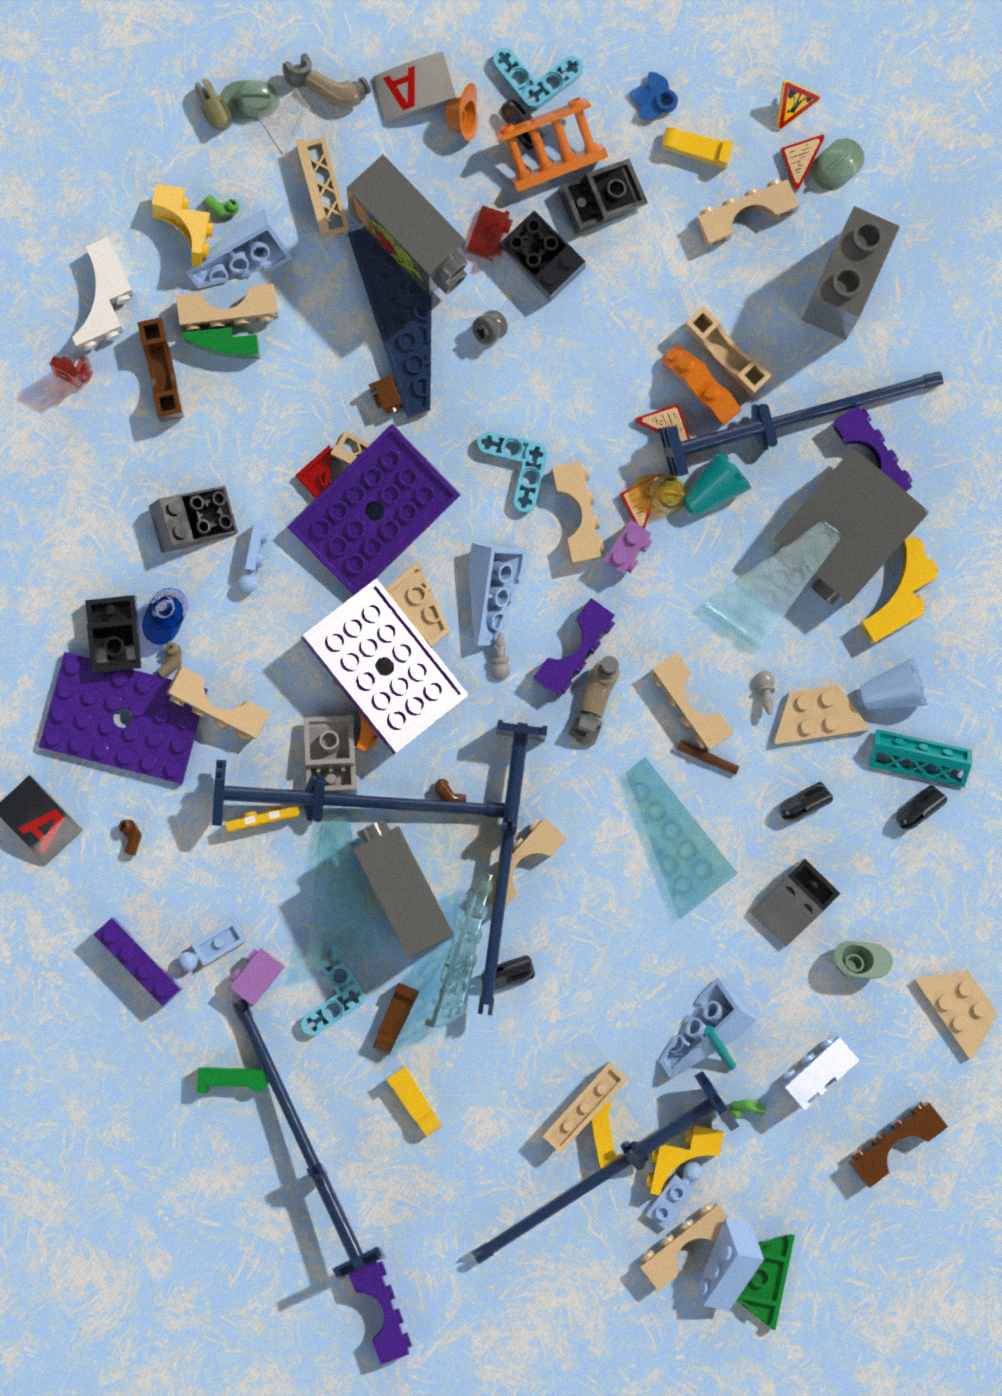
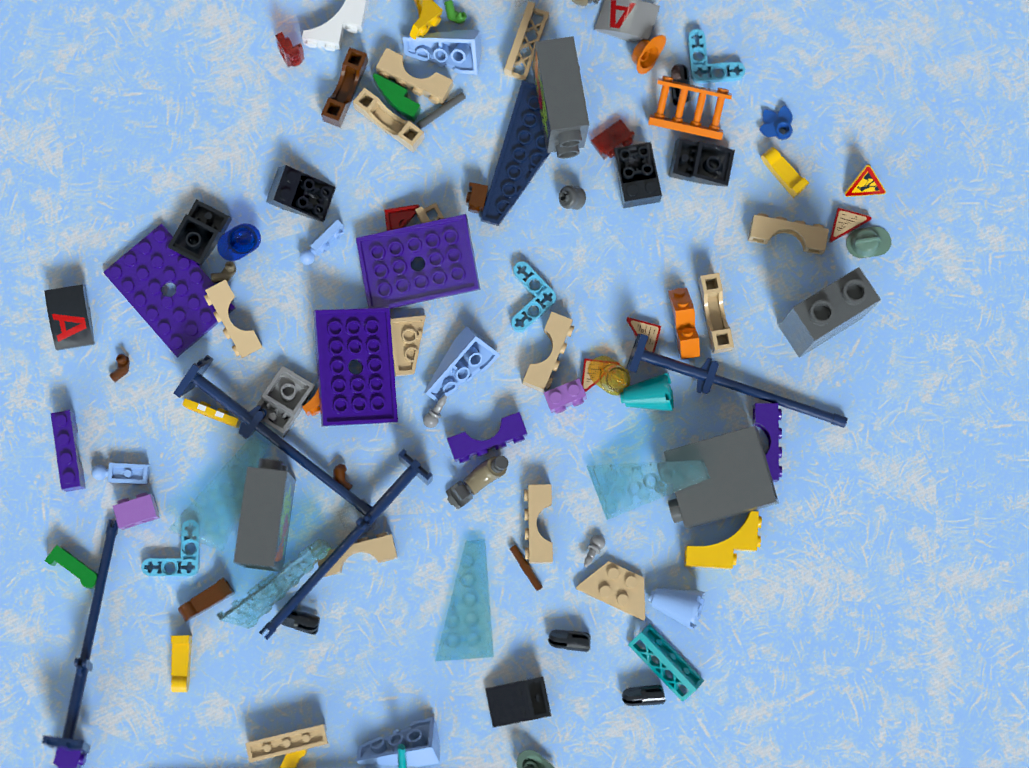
camera: 35 degrees right, 5 degrees down
(244, 376) = (380, 115): none -> tan arch
(281, 324) = (441, 110): none -> dark grey bar

